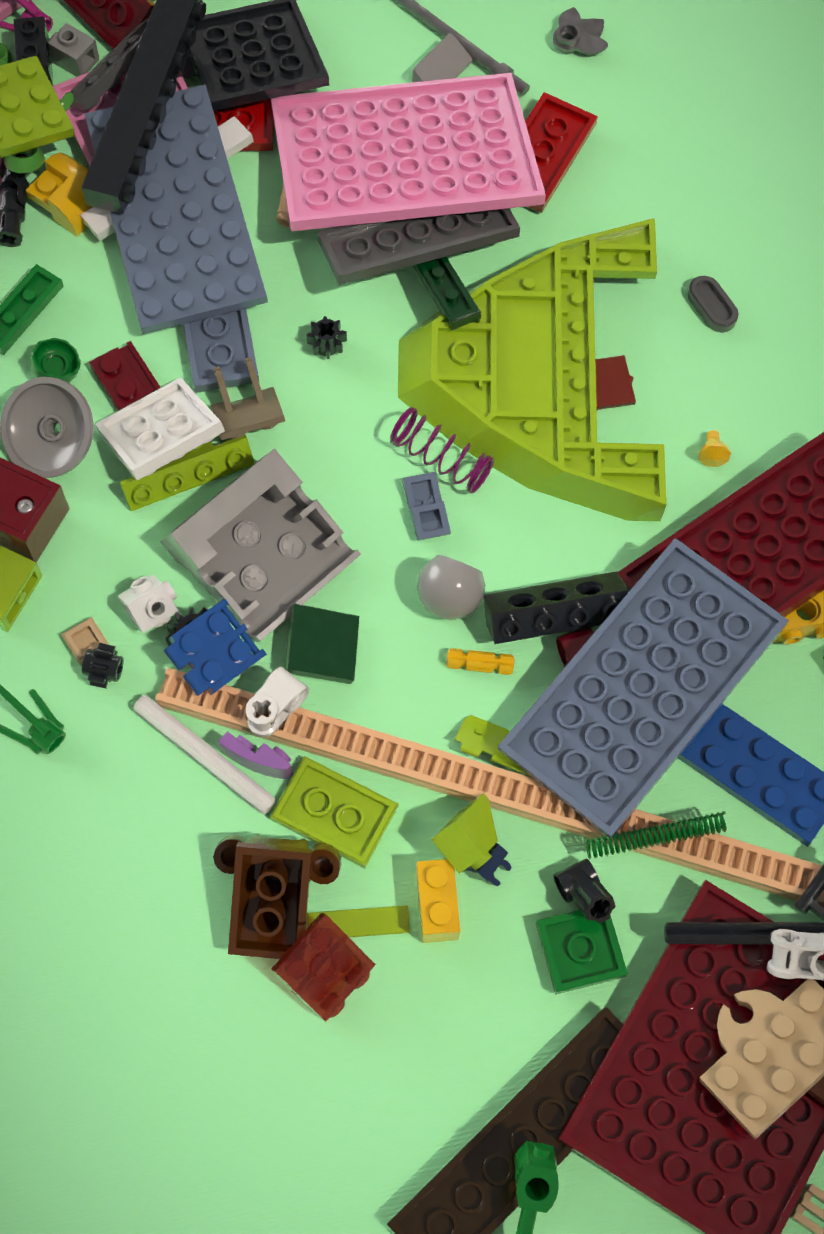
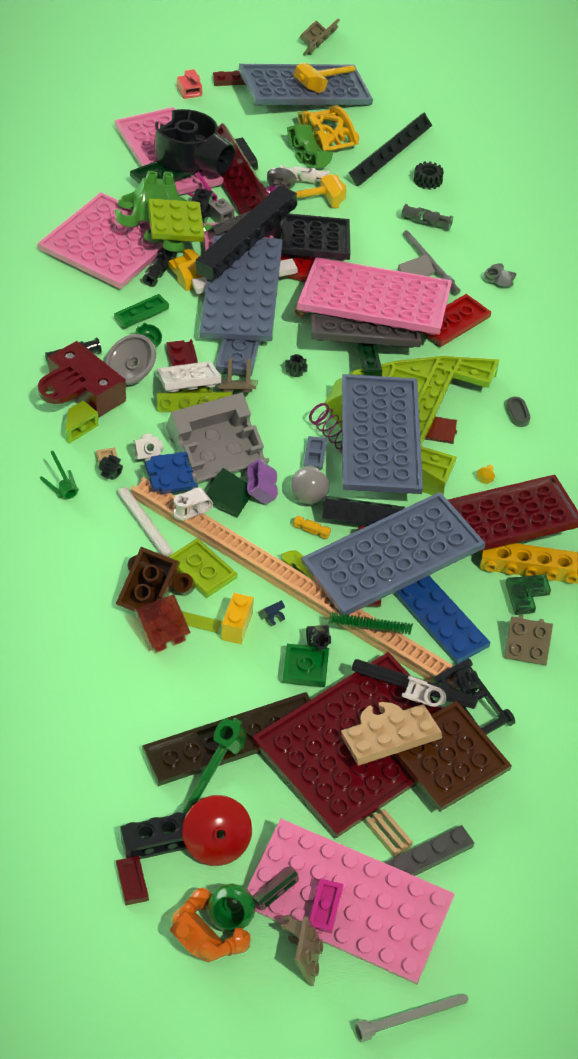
camera: 20 degrees right, 20 degrees down
(264, 761) = (172, 531): medium lavender slope -> none
(368, 604) = (262, 481): none -> medium lavender brick
(468, 836) = (265, 588): lime slope -> none
(530, 447) = (381, 434): none -> sand blue plate

